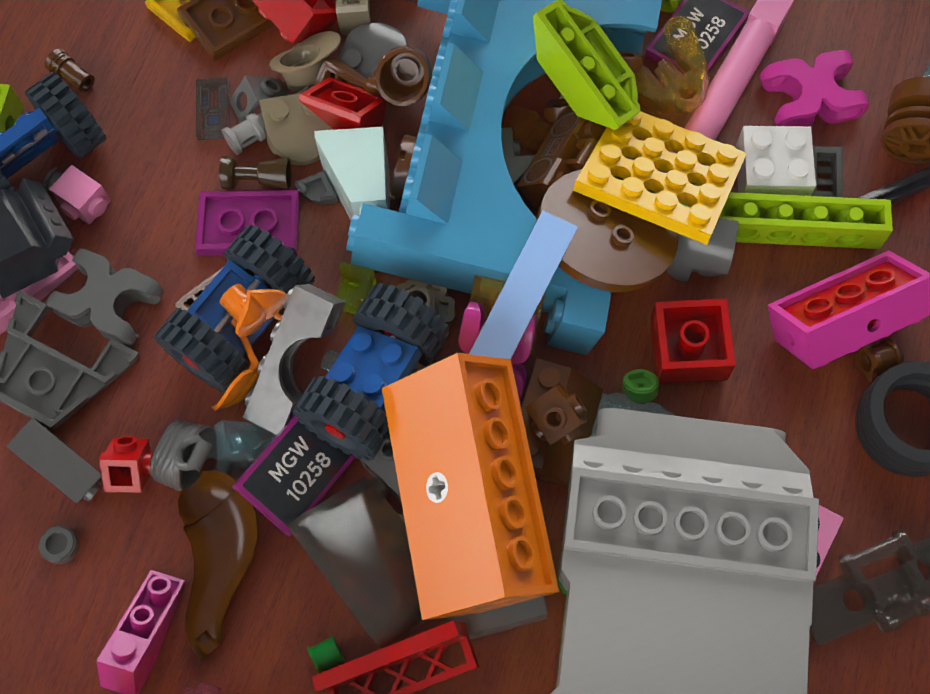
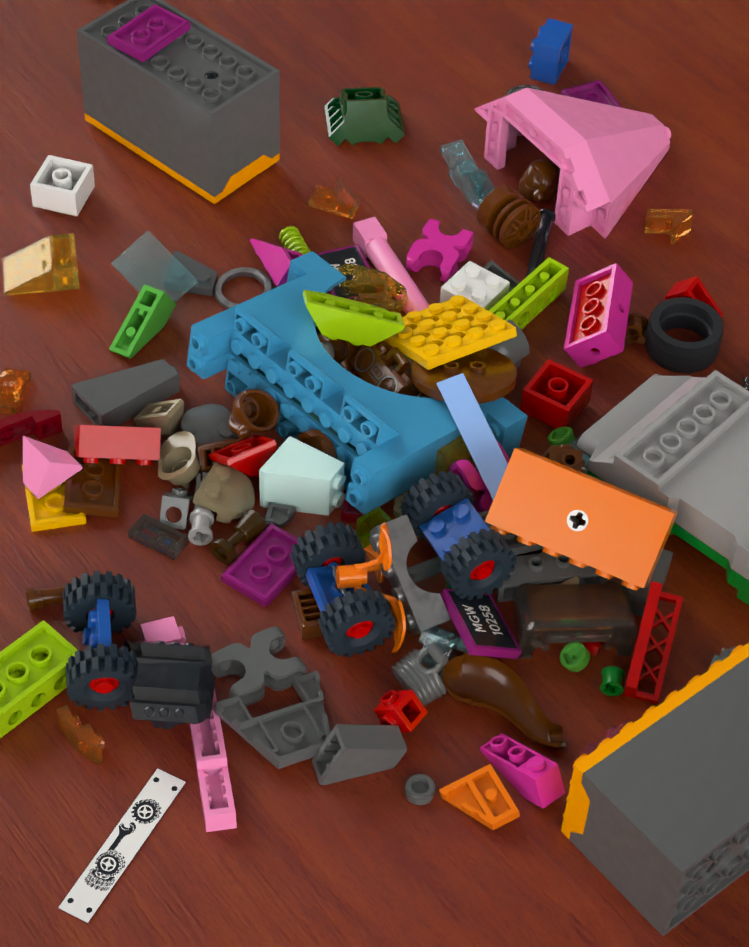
camera: 60 degrees left, 20 degrees down
(79, 617) = (482, 798): none -> orange wing
(327, 598) = (575, 657): none -> bright green tile

